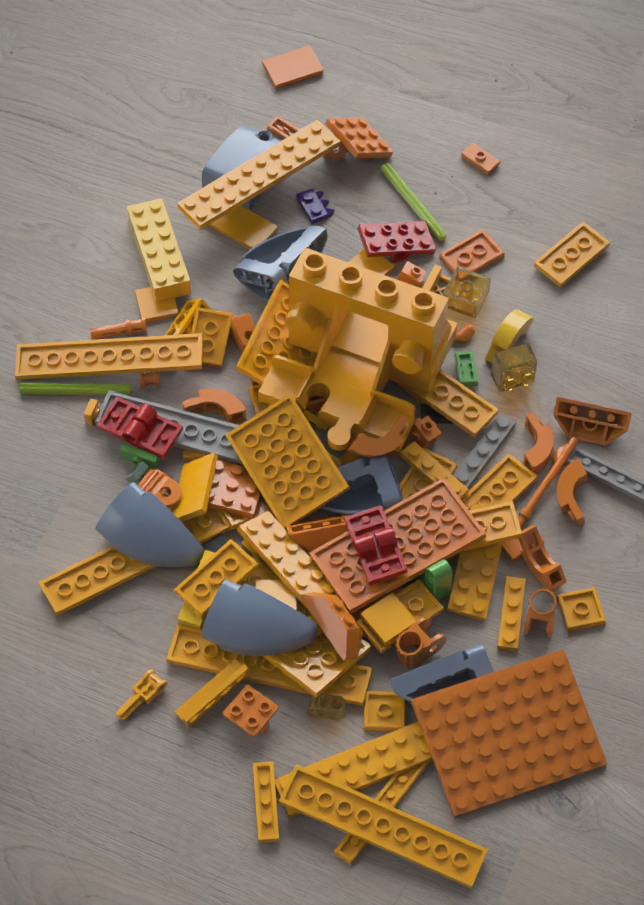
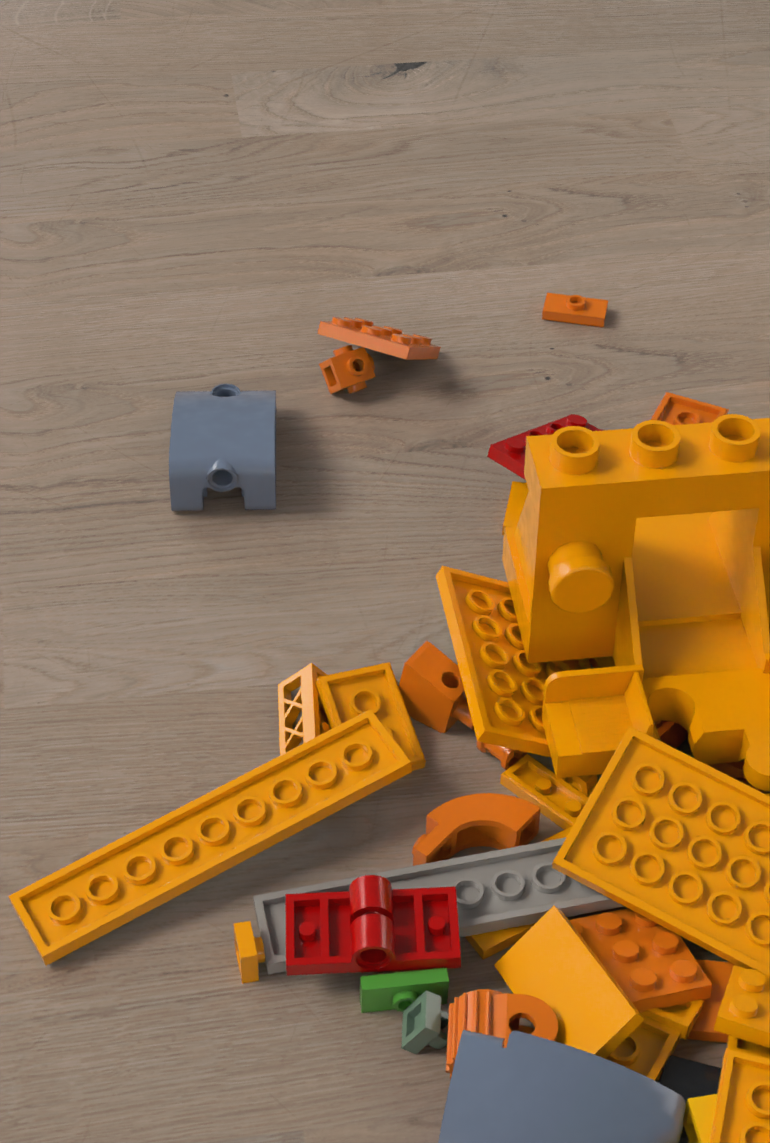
camera: 30 degrees left, 15 degrees down
(73, 389) = (172, 929): lime axle -> none
(128, 327) = (204, 774): orange pin -> none
(149, 378) = (311, 842): orange bush -> none
(152, 309) = (224, 713): light orange tile -> none
(159, 250) = (172, 625): yellow brick -> none
(244, 227) = (271, 535): light orange tile -> none
(258, 174) = (268, 440): light orange plate -> none
(275, 259) = (394, 556): sand blue panel -> none
(279, 131) = (246, 378): orange tile -> none
(292, 67) = (187, 300): tile -> none
(314, 206) = (376, 464): plate -> none
(413, 201) = (525, 396): lime axle -> none

